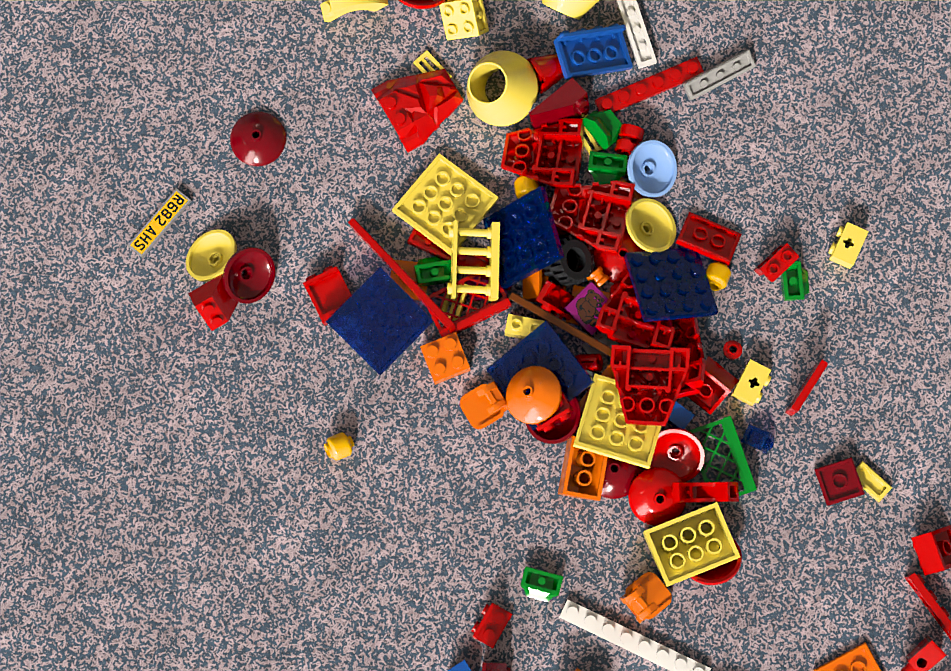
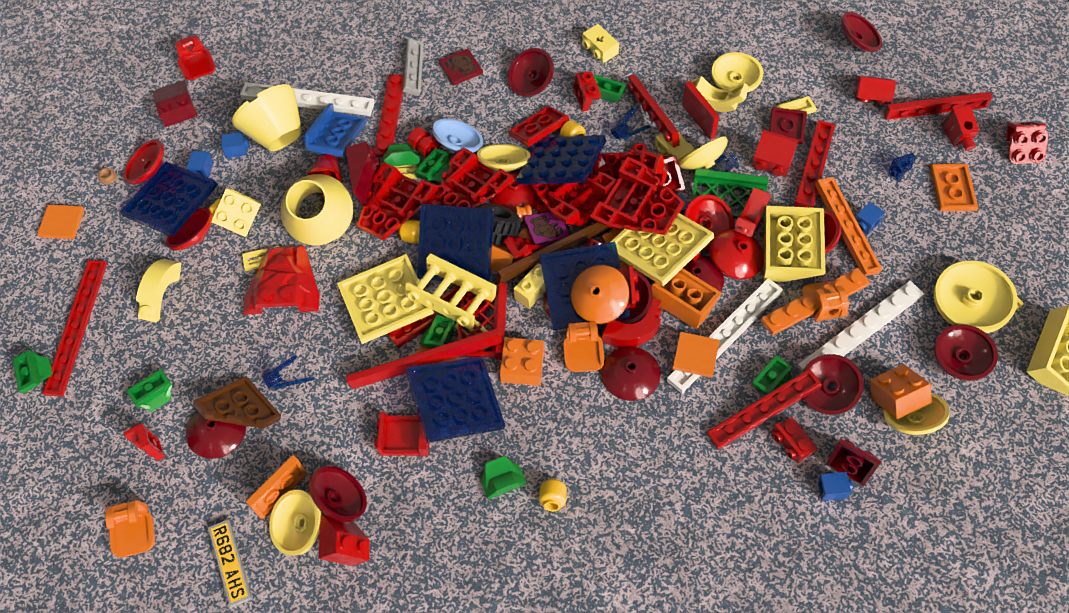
camera: 65 degrees left, 20 degrees down
(143, 131) = (130, 528): none -> orange piece
(215, 94) = (145, 439): none -> red bracket
(230, 223) = (277, 485): none -> orange tile
(261, 64) = (151, 391): none -> green slope
(284, 145) = (238, 404): none -> reddish brown plate
(325, 156) = (274, 377): none -> clear blue plant
(334, 396) = (501, 477): none -> green slope
(490, 470) = (628, 383): none -> dark red dish
(505, 587) = (764, 409): none -> red tile
(525, 445) = (636, 334): none -> red arch
(527, 505) = (696, 354): none -> orange tile
(544, 636) = (847, 382): none -> dark red dish
(565, 523) = (733, 327): none -> white plate
(629, 582) = (809, 303): none -> orange plate
(742, 587) = (850, 228): none -> orange plate
(745, 120) = (460, 66): none -> dark red tile
(748, 318) = (621, 129): none -> clear blue plant
(748, 417) = (704, 155): none -> light yellow dish
(762, 190) = (524, 69): none -> dark red dish
(762, 604) = (869, 217): none -> blue brick
(774, 346) = (655, 113): none -> red plate
(788, 484) = (774, 153): none -> red slope
(804, 528) = (815, 164): none -> red plate
(836, 394) = (721, 99): none -> light yellow arch
(849, 615) = (901, 165): none -> clear blue bracket
(891, 400) = (739, 67): none -> light yellow dish

